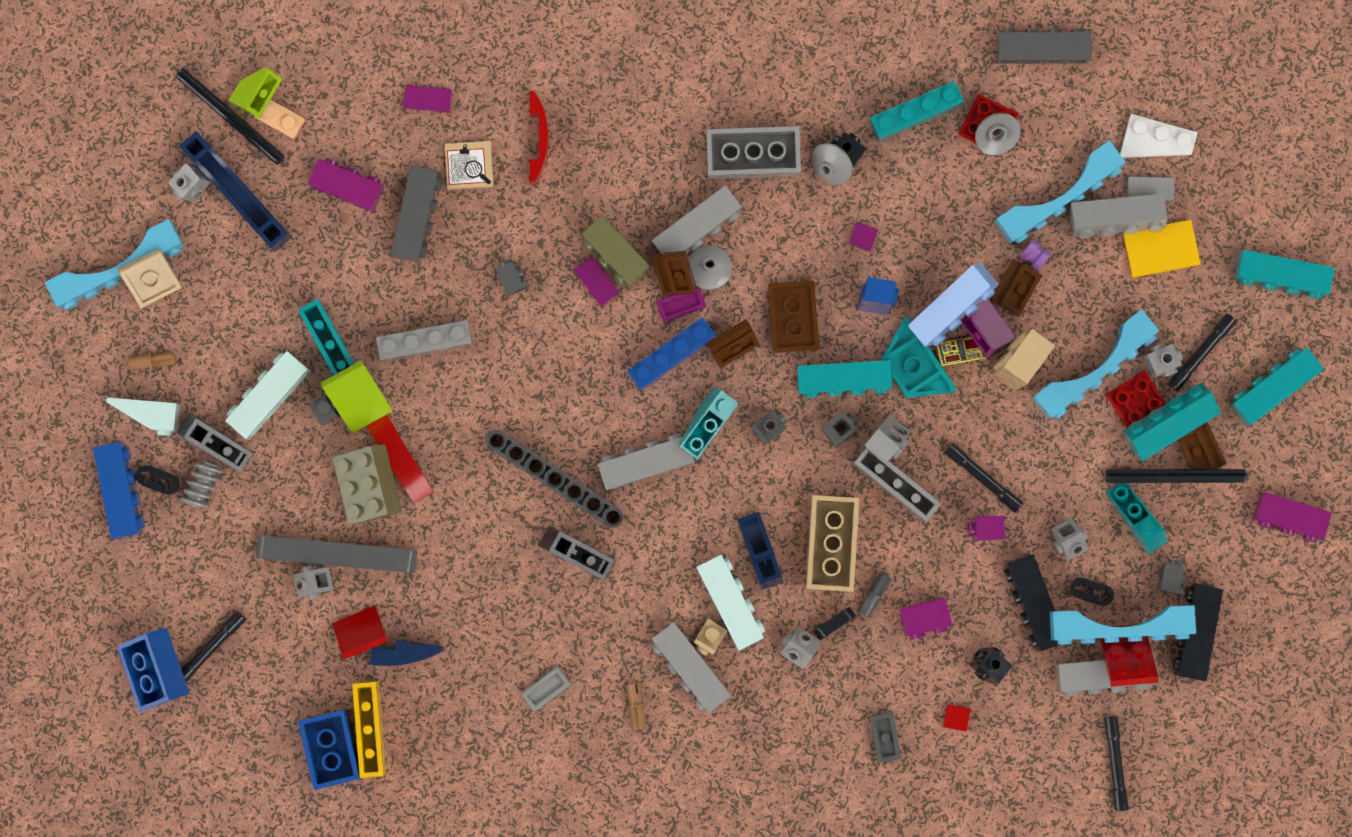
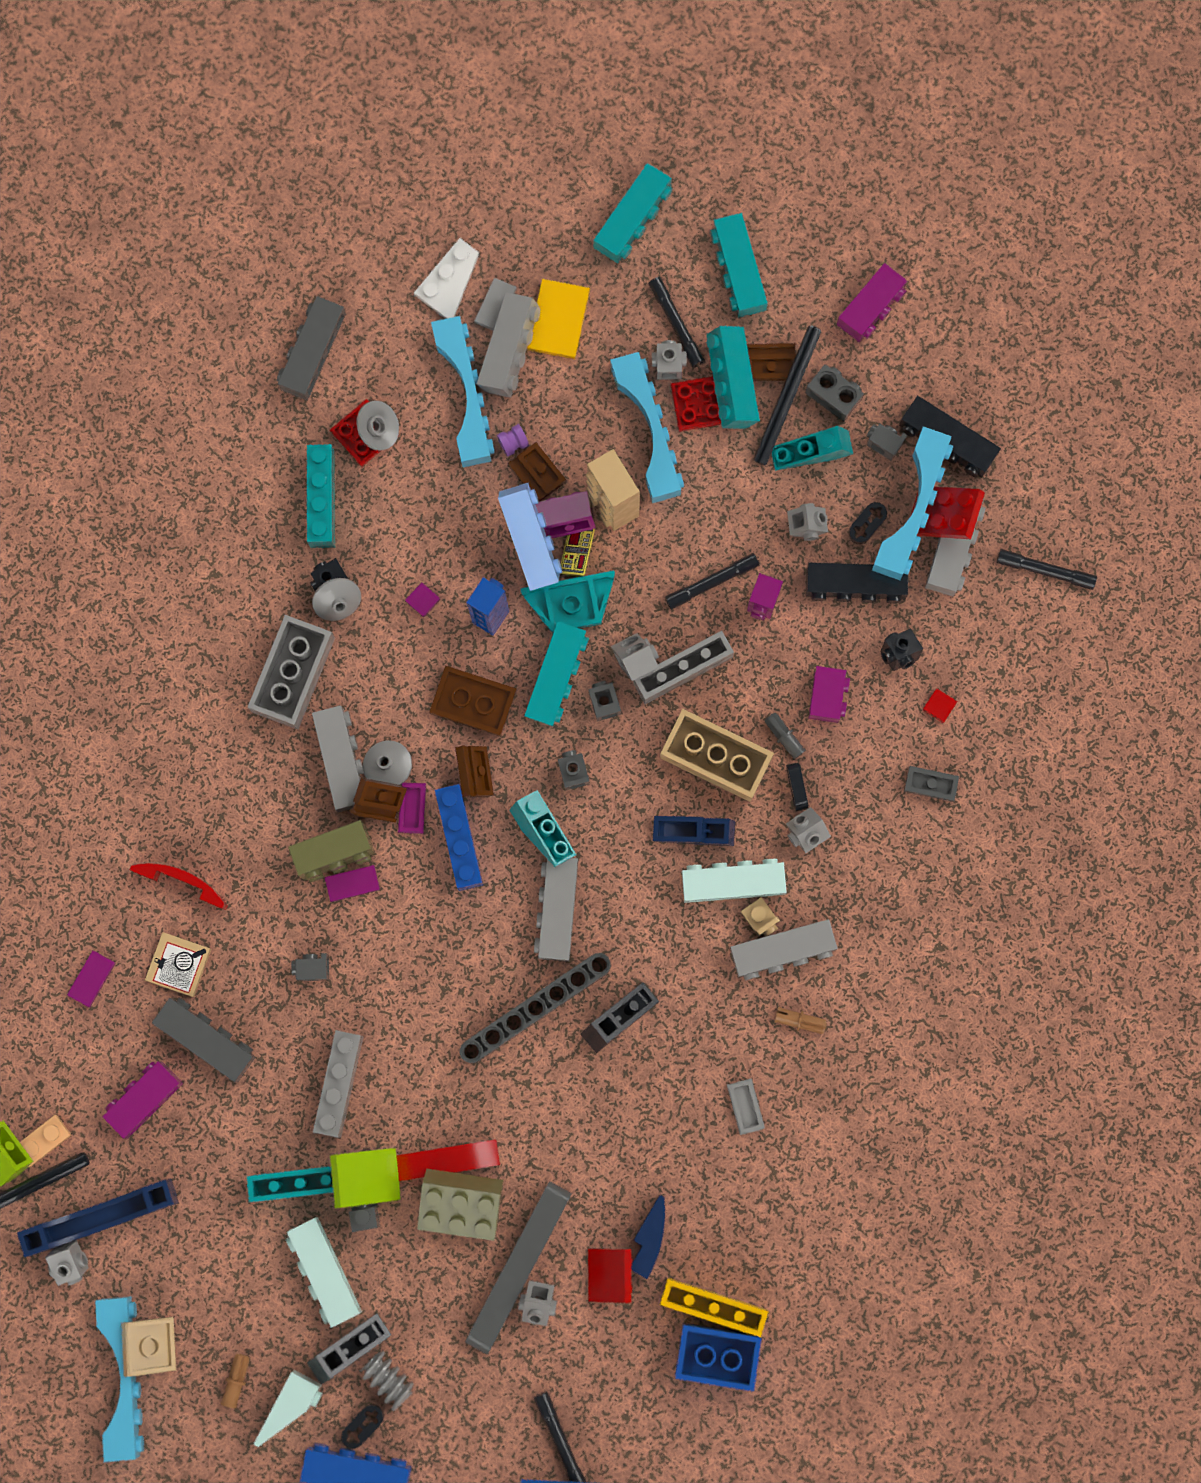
camera: 65 degrees left, 5 degrees down
(1190, 514) = (829, 397): none -> dark grey brick

